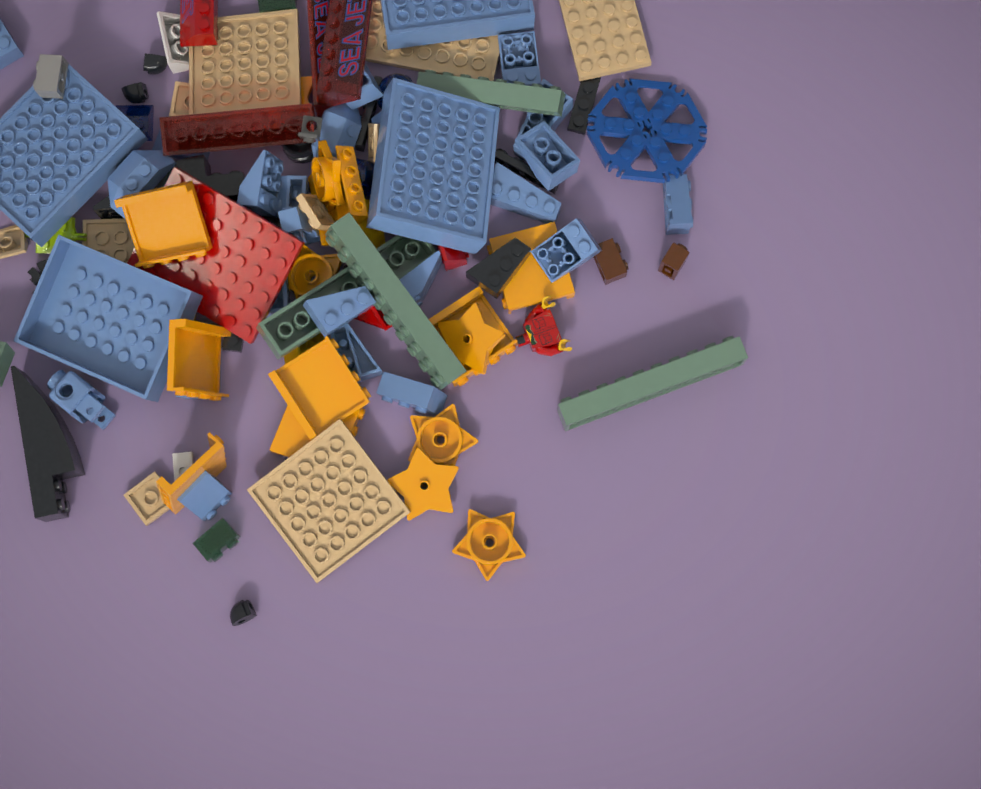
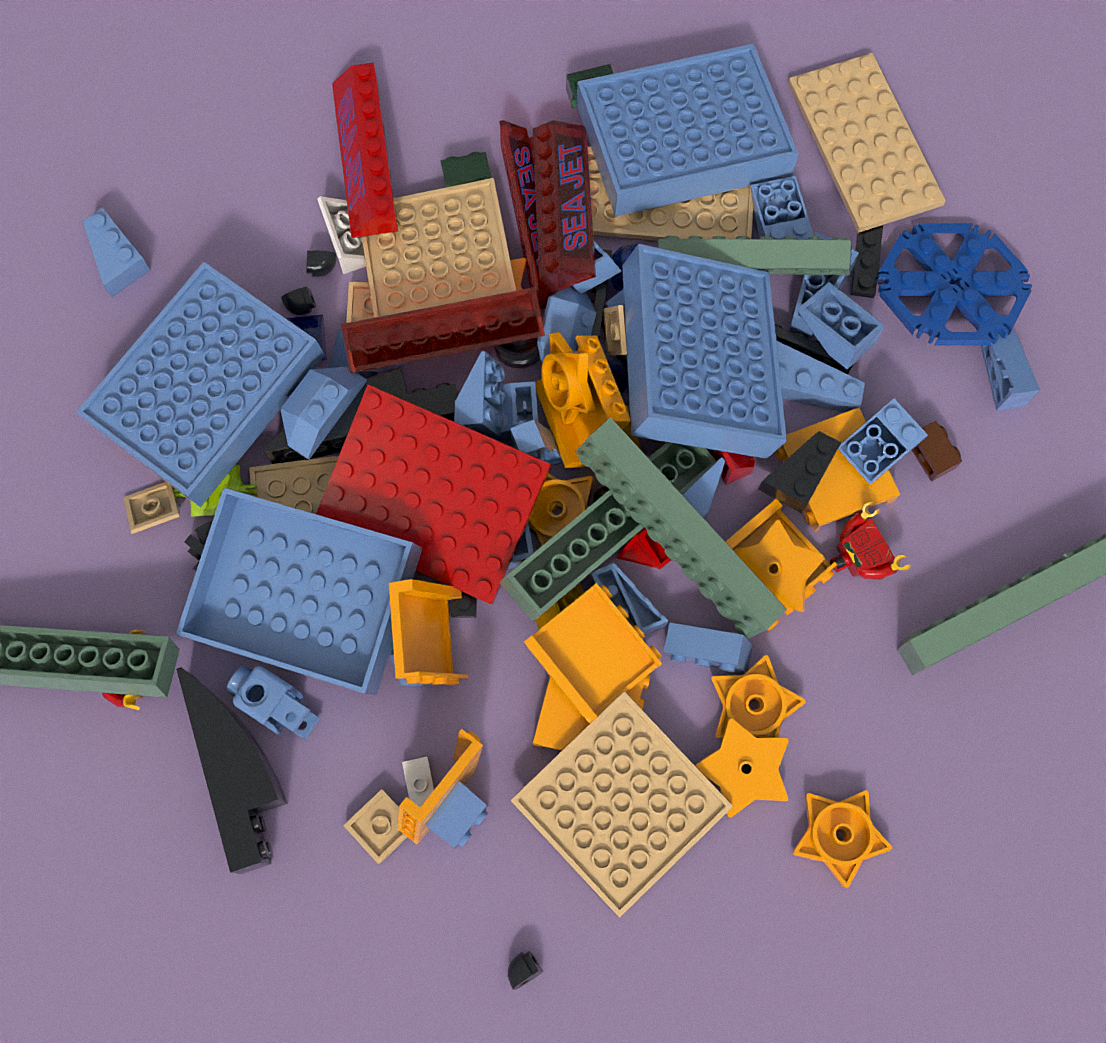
camera: 10 degrees left, 5 degrees down
(51, 76) = (194, 285): light grey brick -> none
(165, 224) = (366, 459): light orange panel -> none
(217, 540) = (476, 874): clear green brick -> none
(308, 136) = (538, 329): dark grey bracket -> none
(315, 210) = (560, 429): tan plate -> none
(338, 309) = (606, 546): medium blue wedge -> none
(673, 260) = (1019, 441): reddish brown brick -> none

